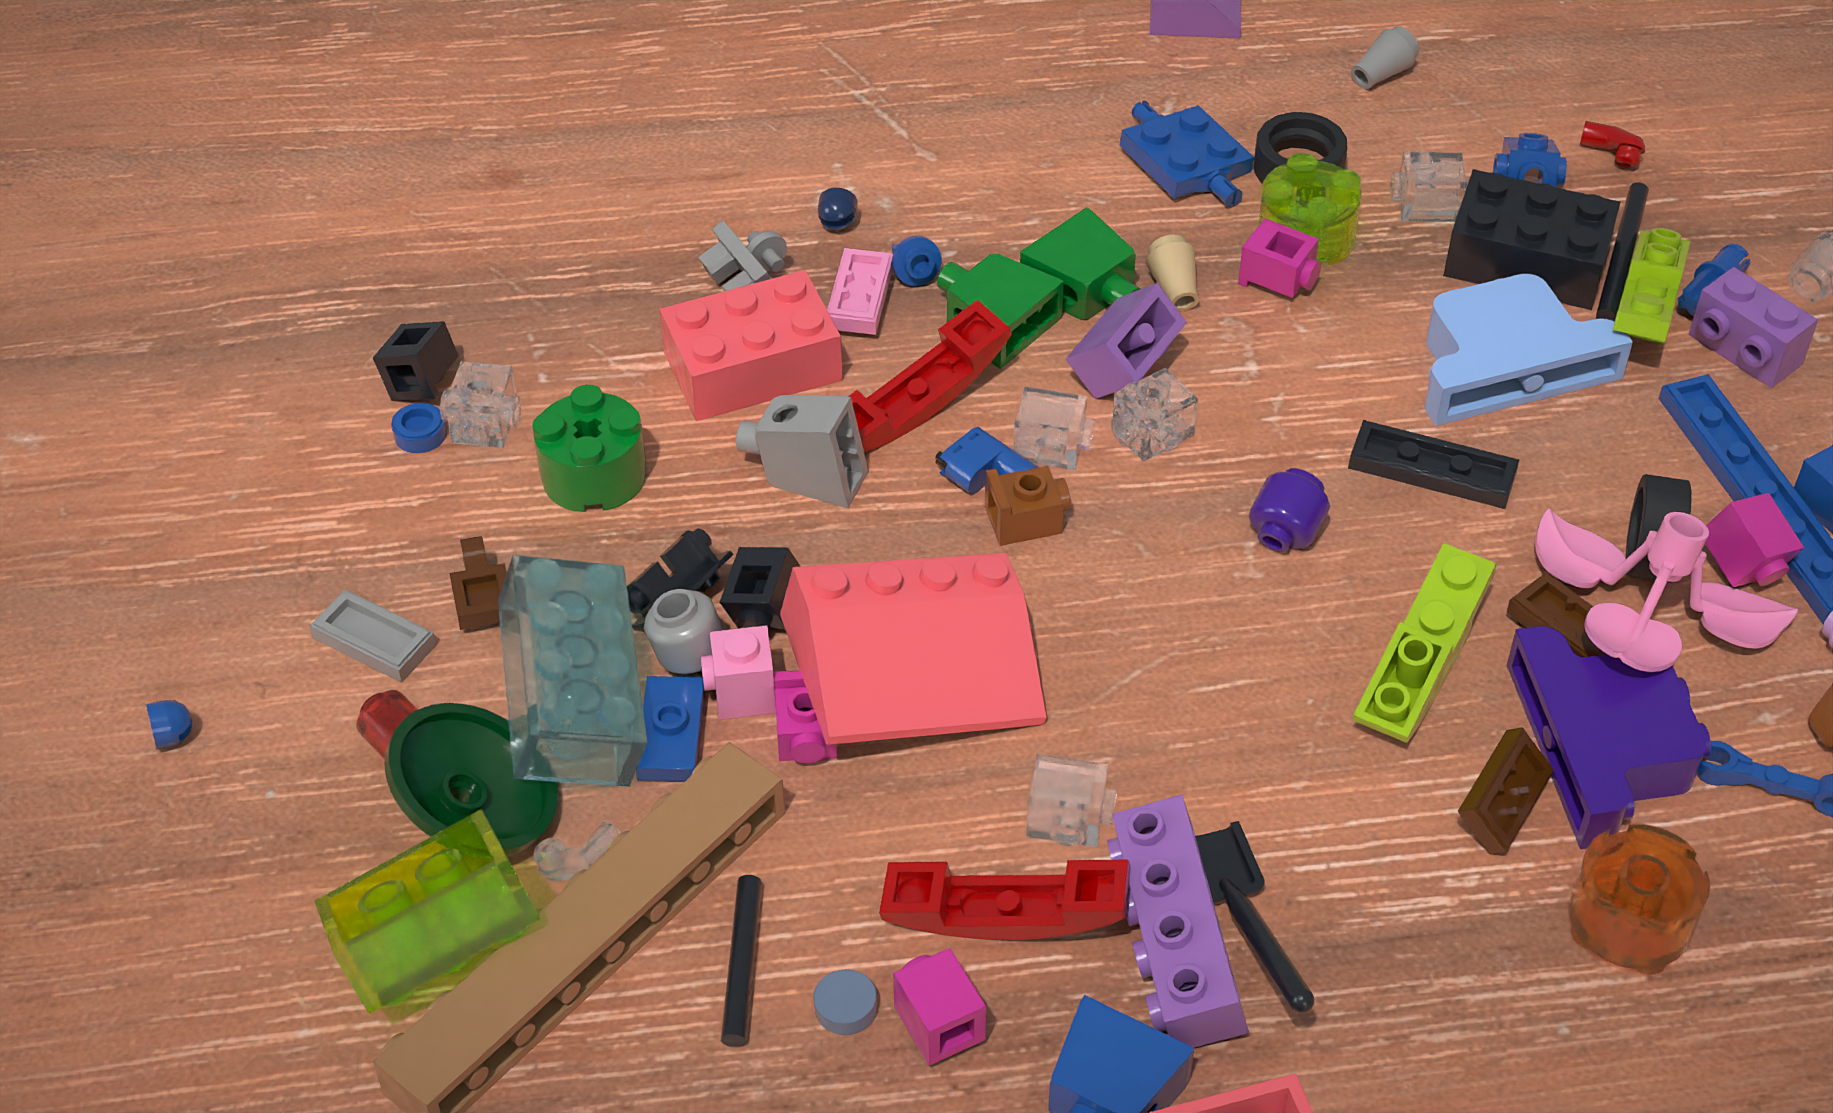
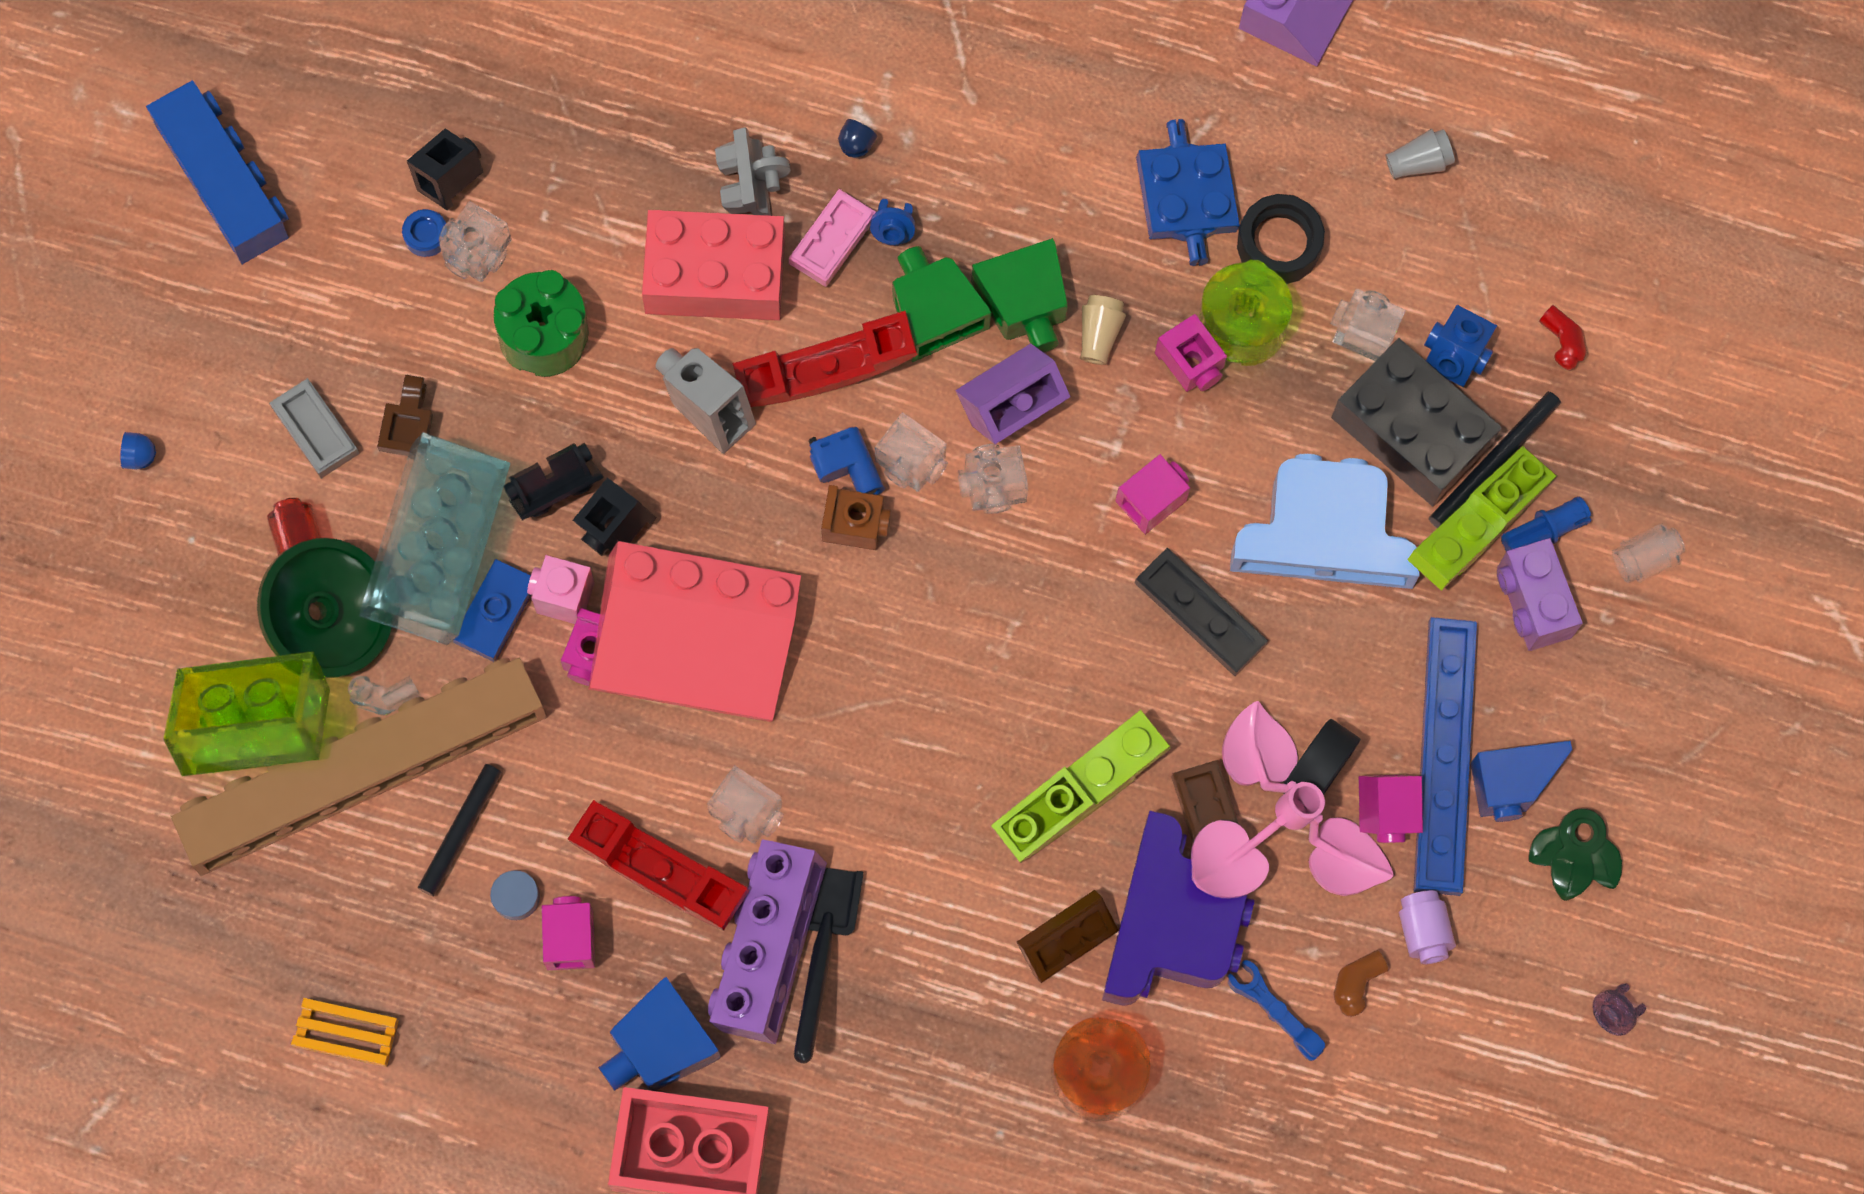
camera: 20 degrees right, 25 degrees up
(160, 443) = (218, 172): none -> blue brick
(681, 629) = (531, 535): light grey head -> none
(1289, 510) = (1052, 615): dark purple head -> none
(1319, 379) = (1153, 493): none -> dark pink brick

